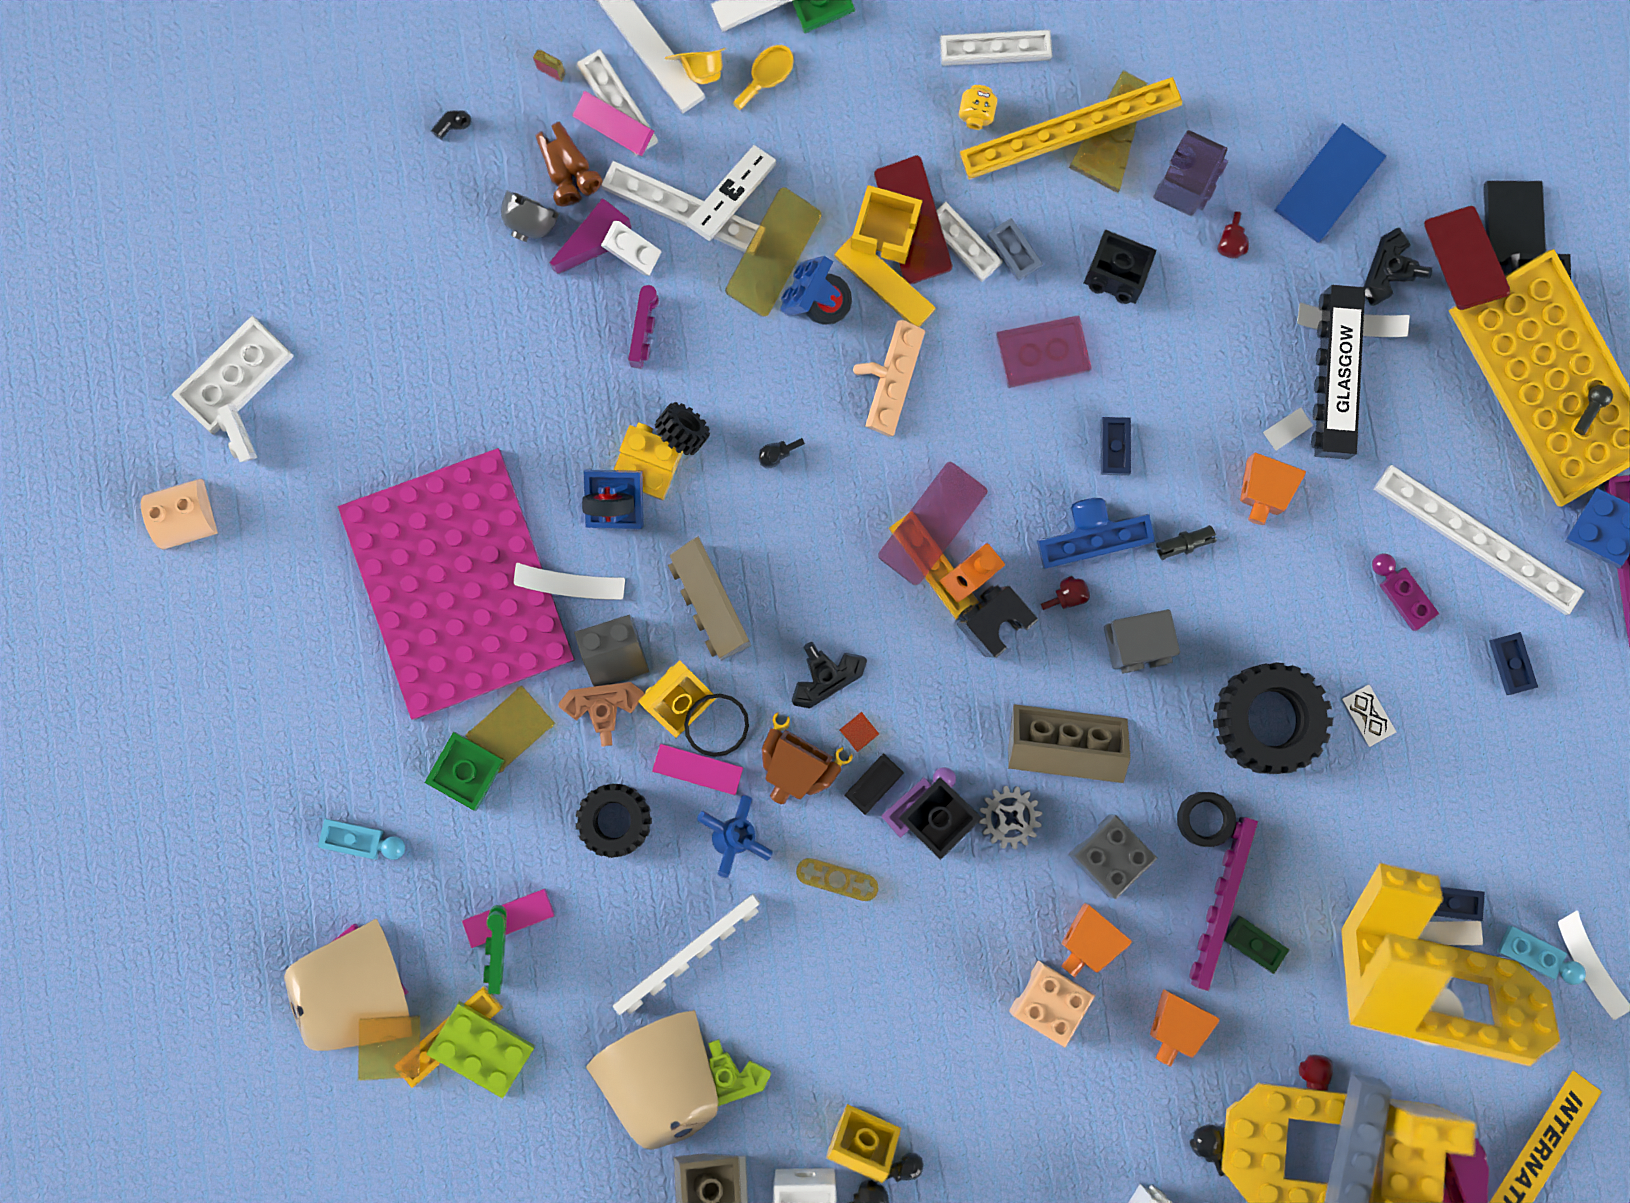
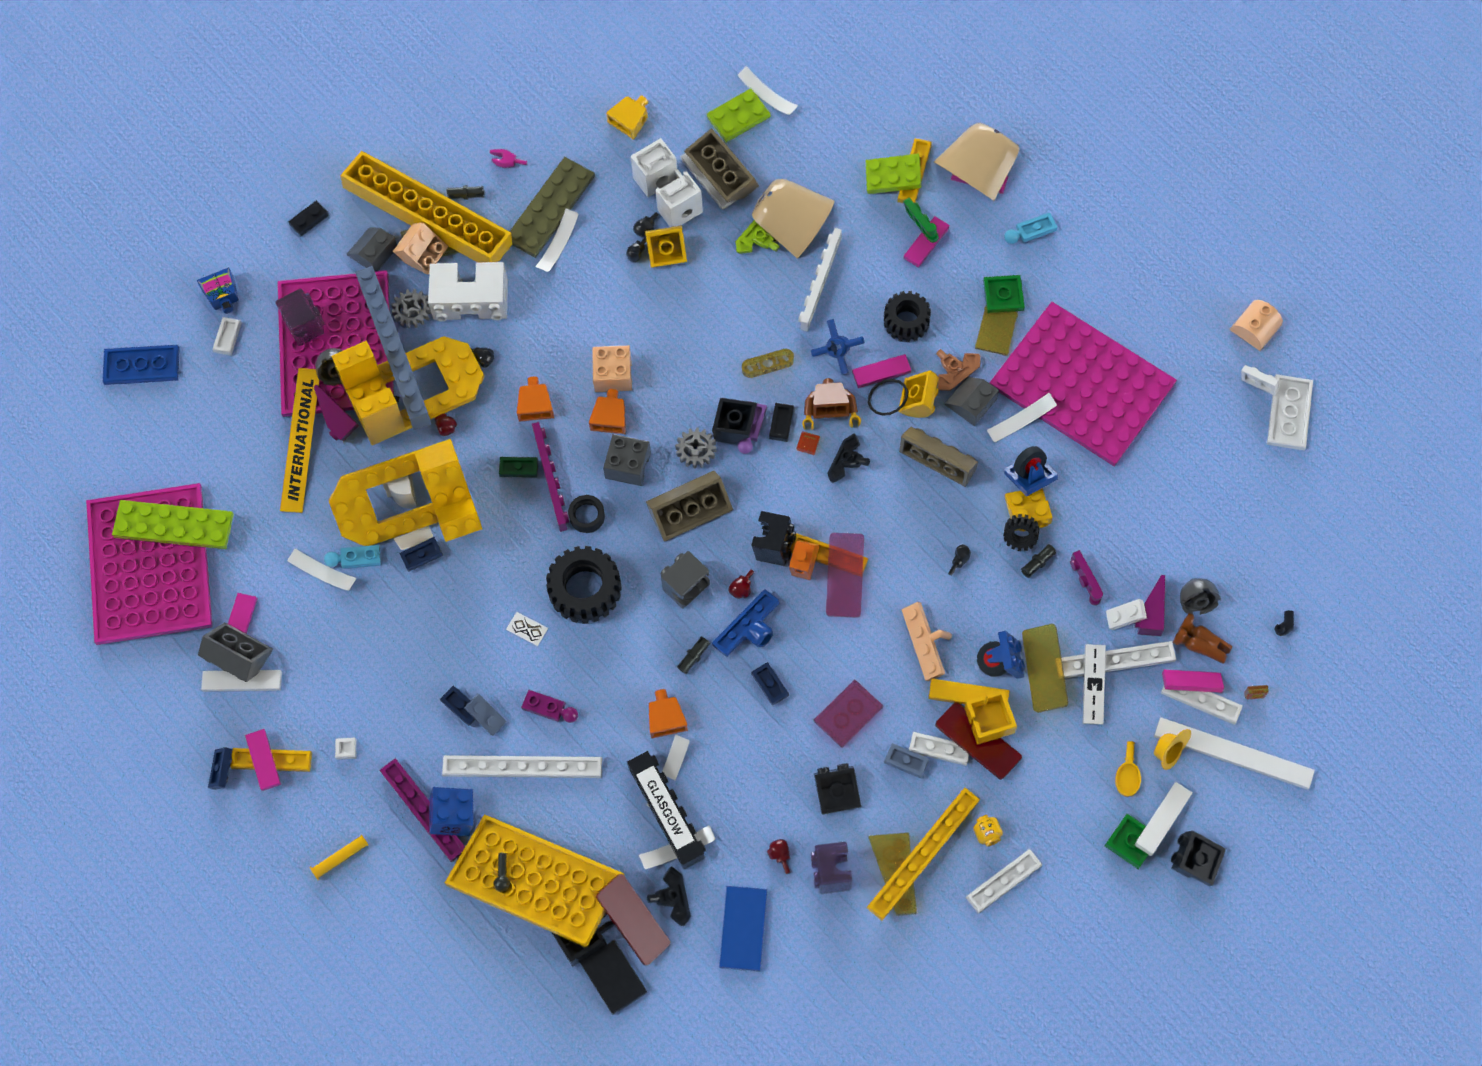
camera: 150 degrees right, 15 degrees down
(388, 1047) = (940, 145): clear yellow tile -> none
(684, 387) = (1038, 561): none -> pearl dark grey pin
(1492, 629) = (485, 714): none -> sand blue plate

